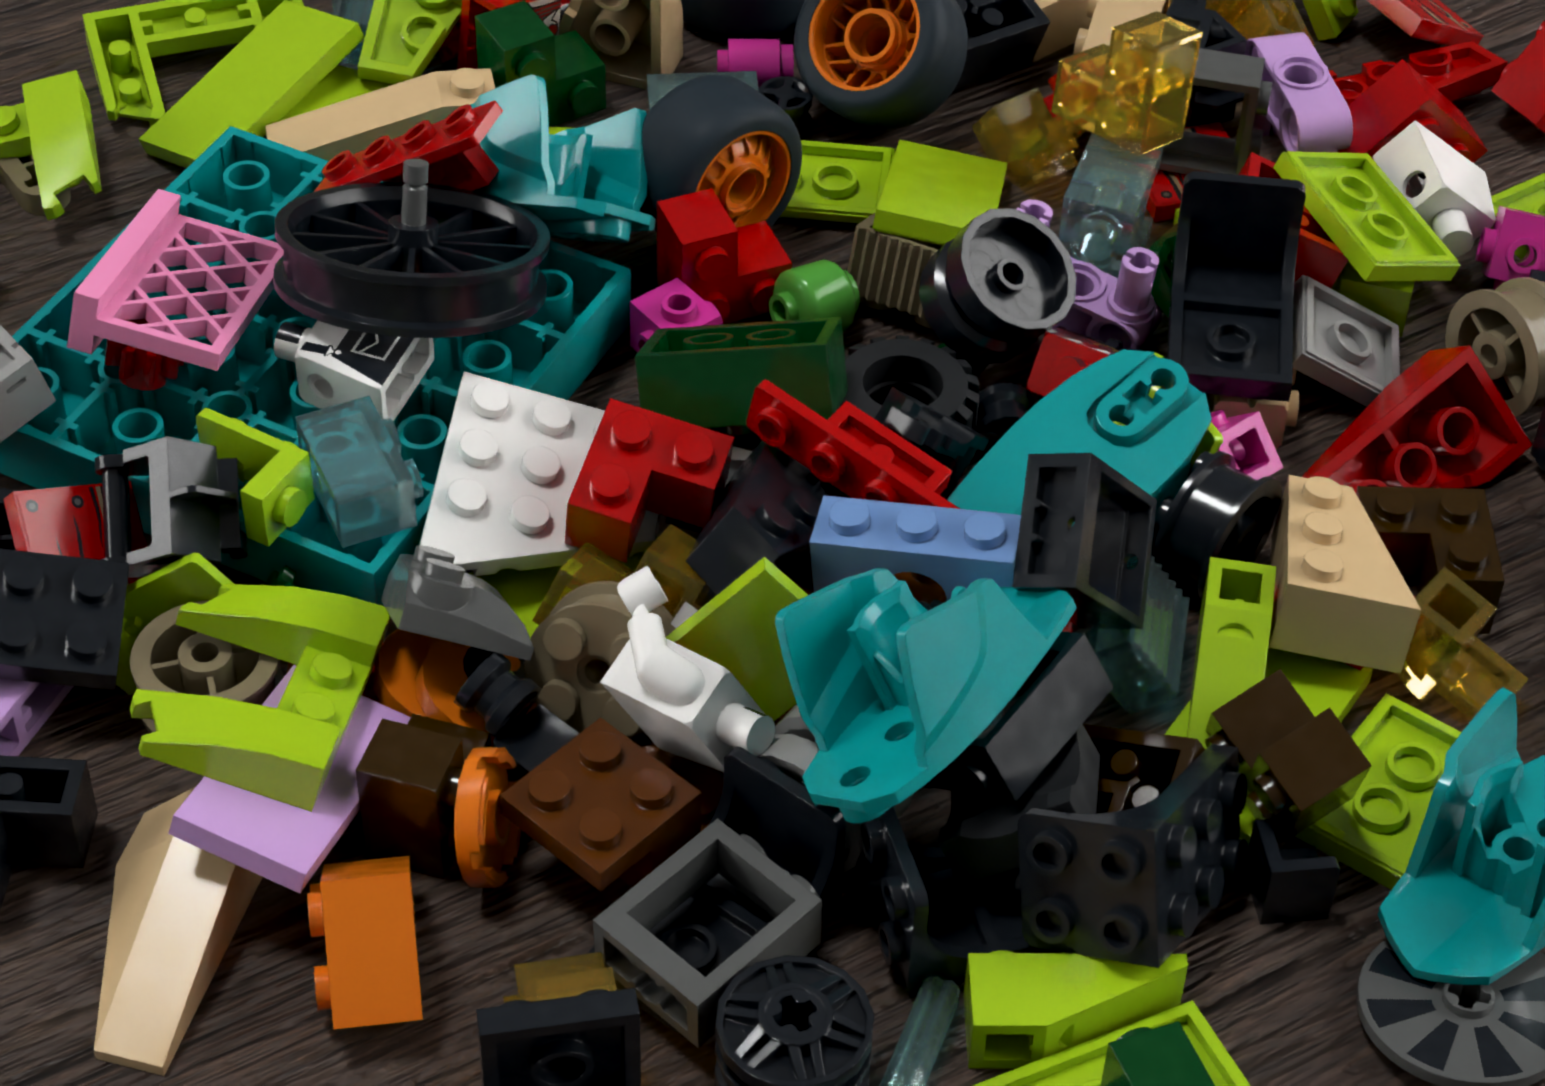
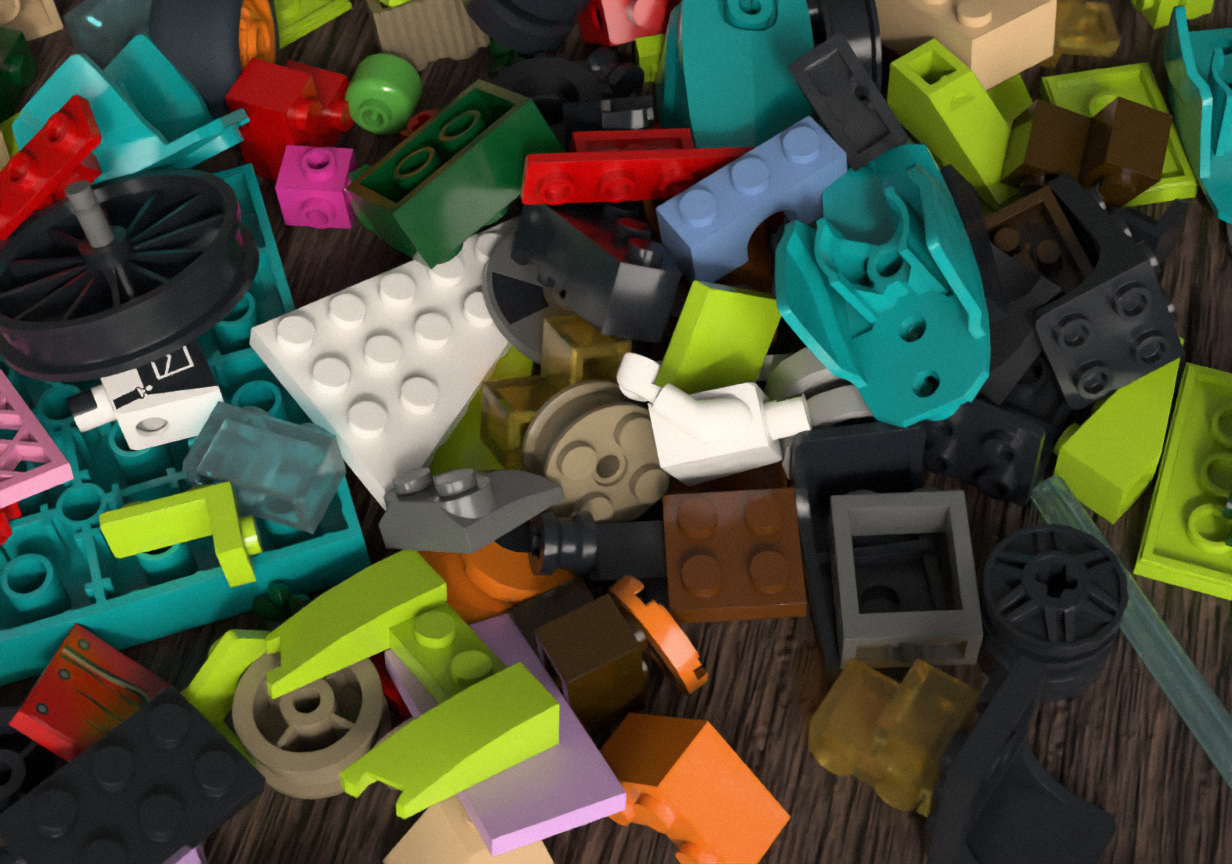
camera: 40 degrees left, 10 degrees up
(190, 504) = (169, 599): black piece -> none
(640, 466) = (470, 301): red brick -> none

